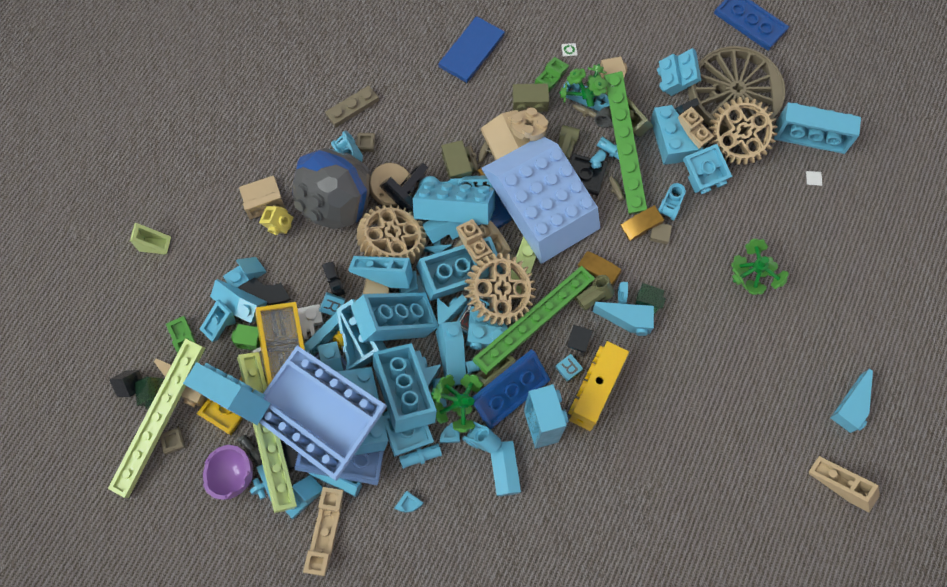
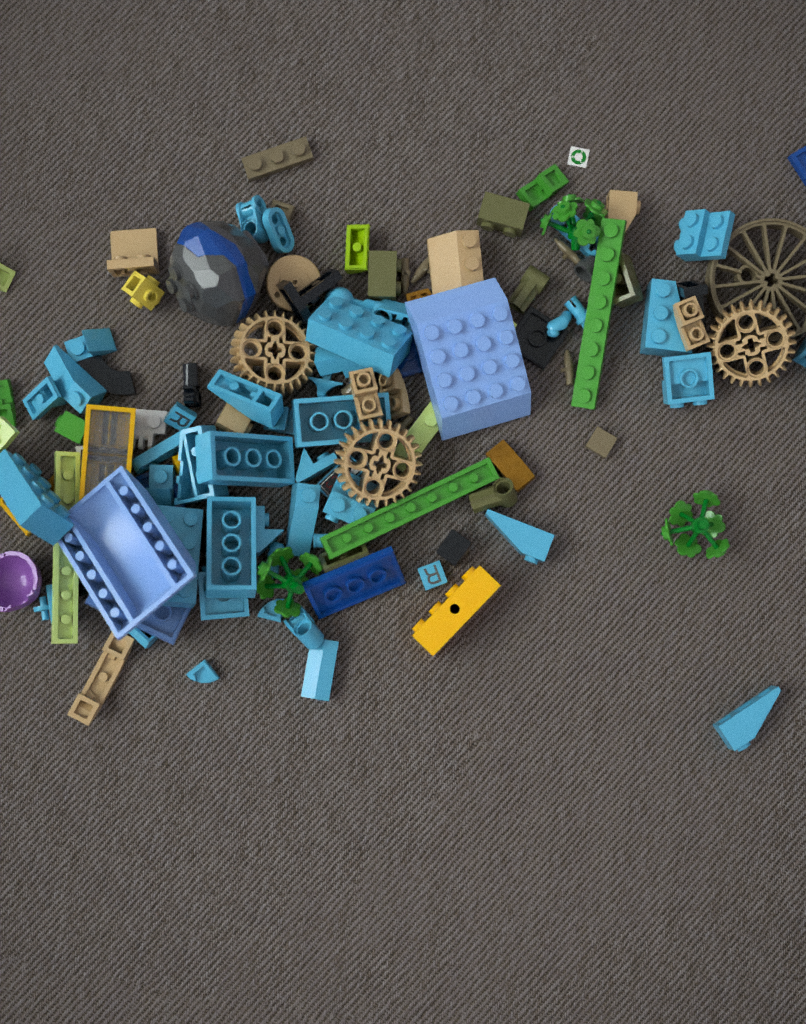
camera: 20 degrees right, 15 degrees up
(254, 452) = (45, 557): dark grey bar -> none
(305, 493) = (90, 629): medium azure slope -> none
(368, 150) = (278, 230): none -> medium azure plate
(420, 456) = (230, 625): medium azure pin -> none
(431, 148) = (357, 248): none -> lime slope
(471, 49) = (452, 120): blue tile -> none
(532, 117) = (489, 248): tan plate -> none
(545, 416) = (376, 632): medium azure brick -> none
(622, 292) = (525, 507): medium azure tile -> none
(642, 223) = (582, 424): pearl gold slope -> none
(650, 296) = (556, 522): clear green brick -> none
(671, 203) = (626, 411): medium azure piece -> none
(846, 484) = (695, 803): tan slope -> none

